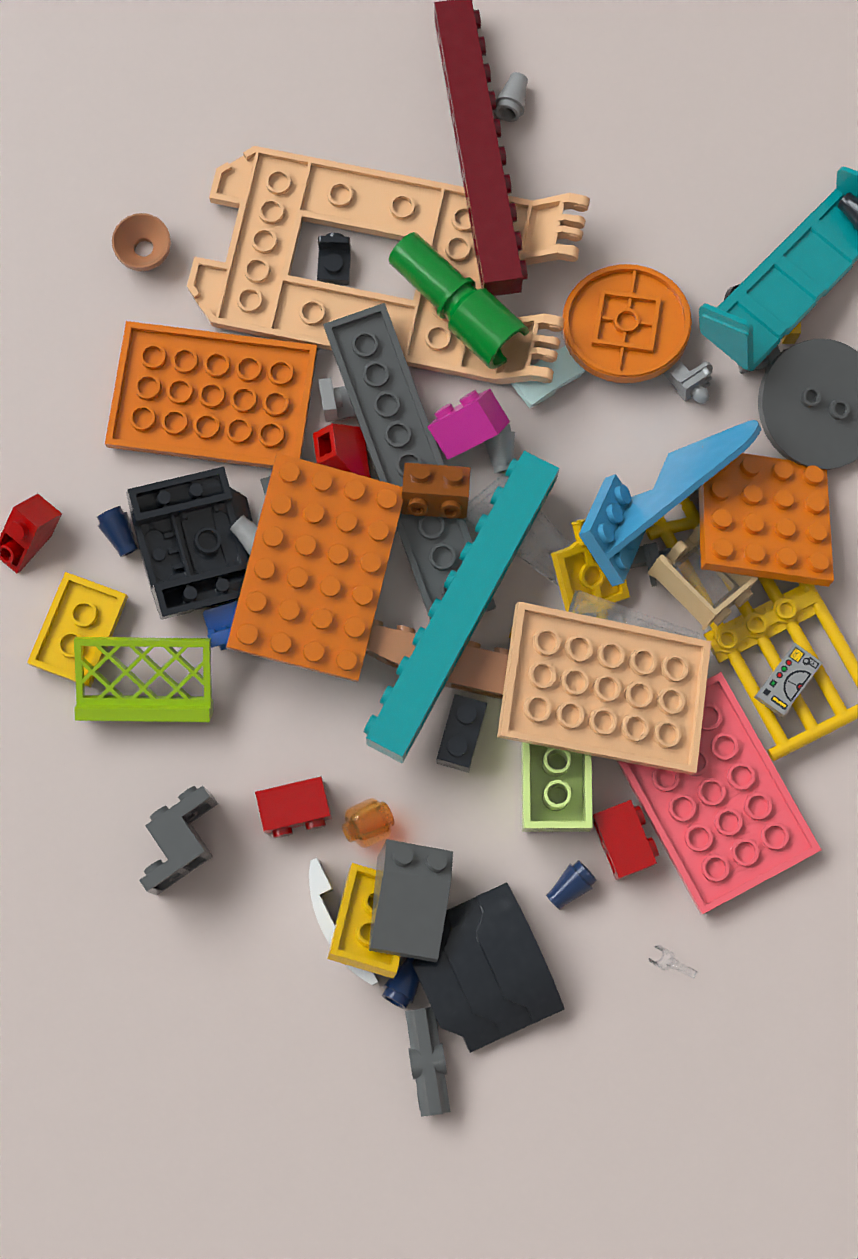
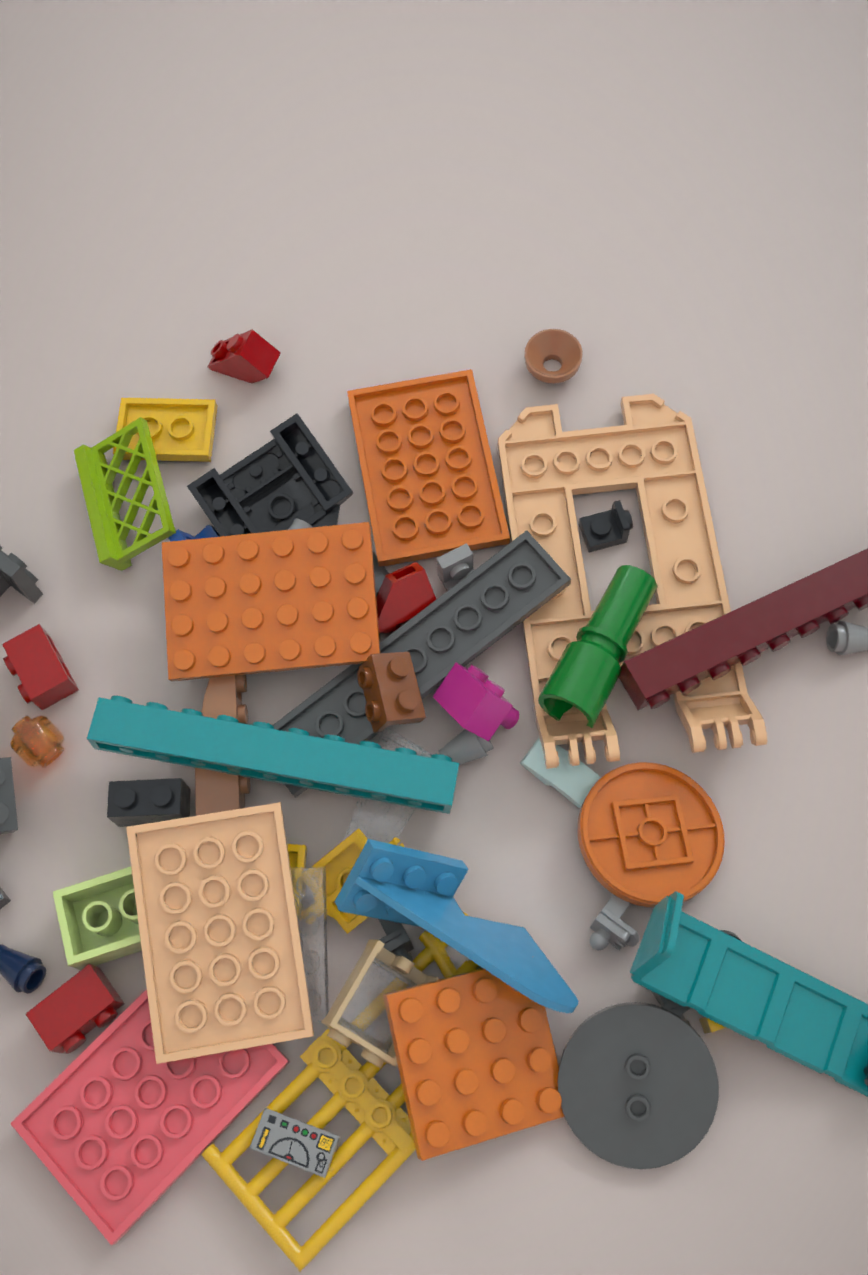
camera: 75 degrees right, 10 degrees down
(118, 530) = (261, 434): dark blue cone -> none

